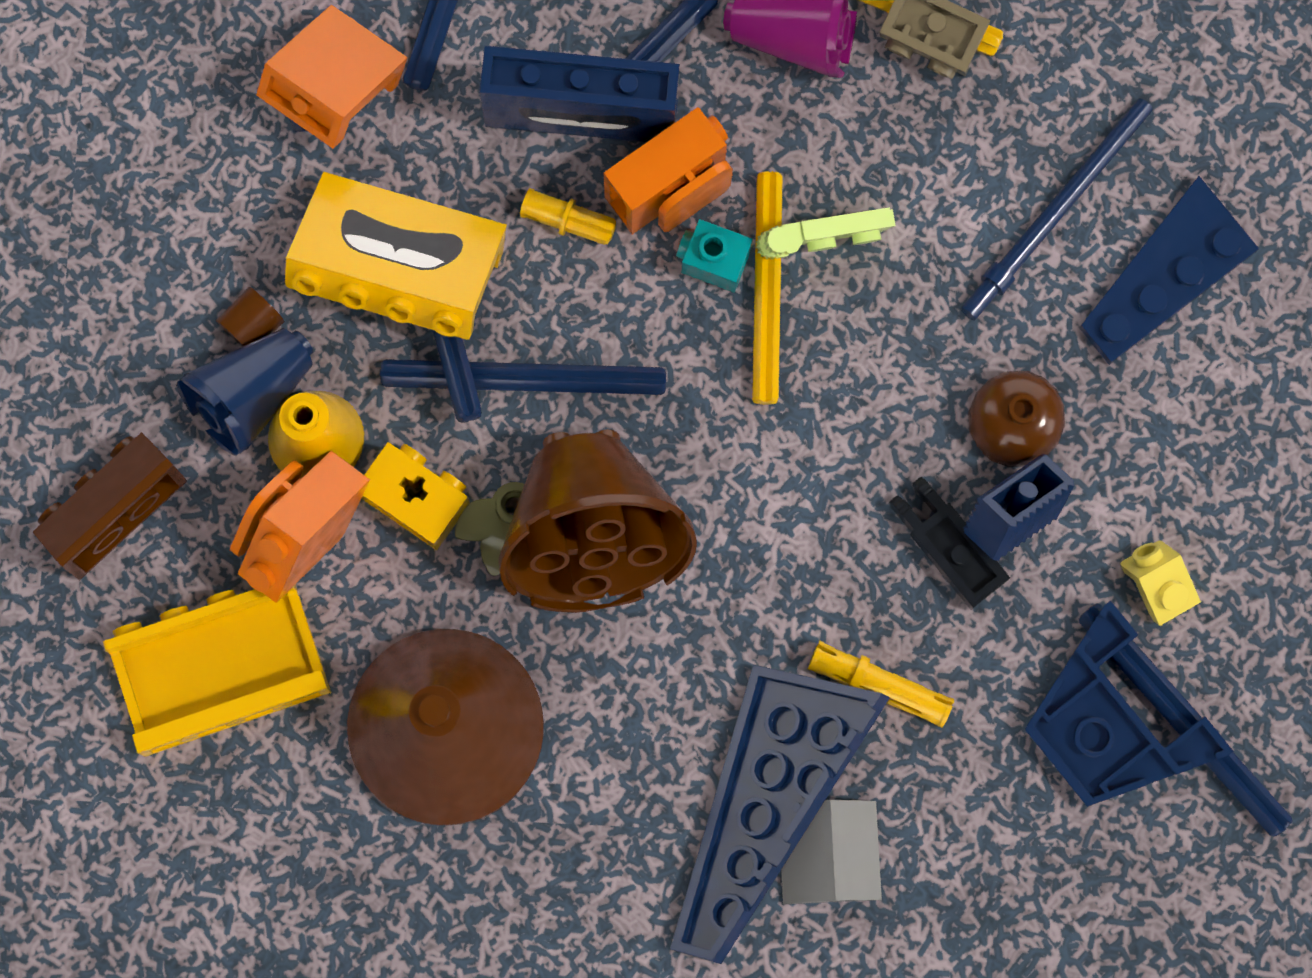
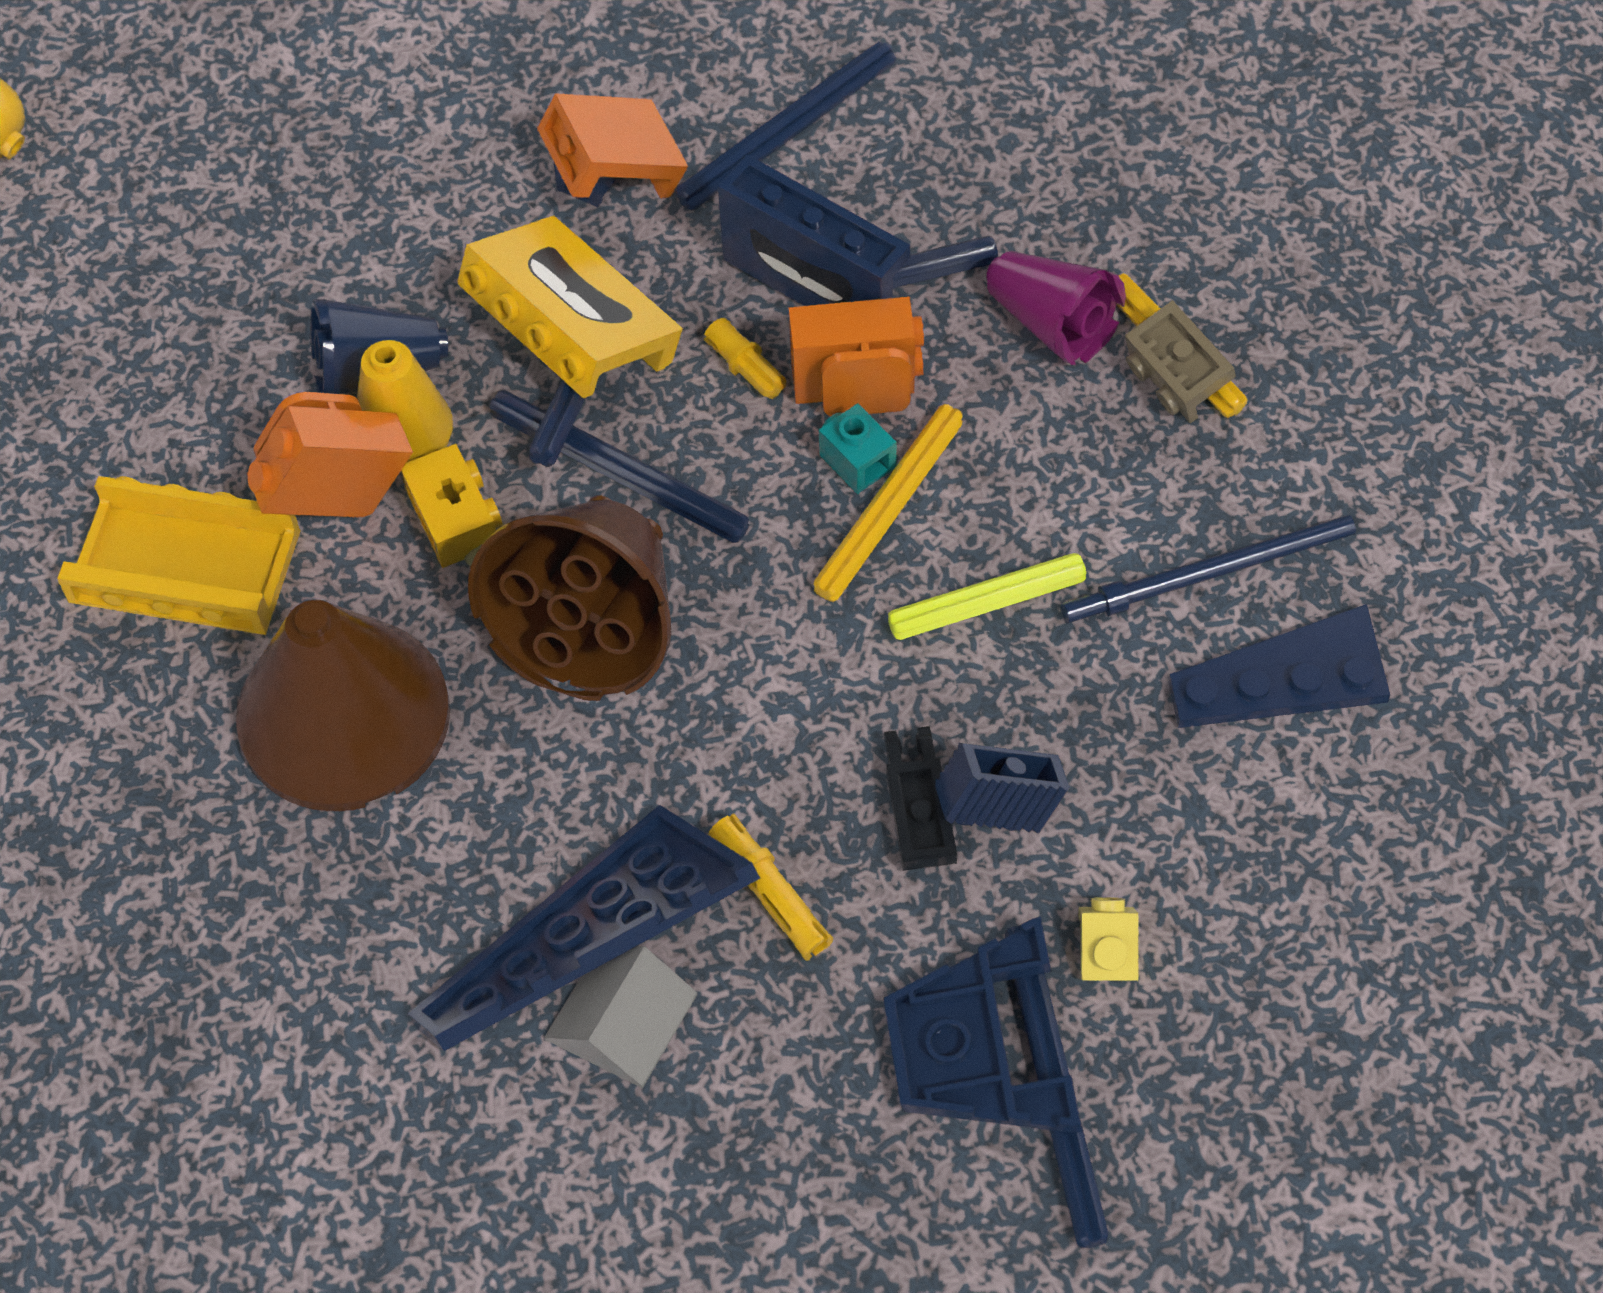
camera: 35 degrees right, 20 degrees down
(108, 505) = (185, 384): reddish brown slope -> none
(249, 318) = (414, 299): reddish brown brick -> none
(821, 233) = (968, 471): yellowish green hinge -> none
(897, 332) = (987, 596): none -> neon yellow axle
(1016, 418) = (1057, 716): reddish brown cylinder -> none

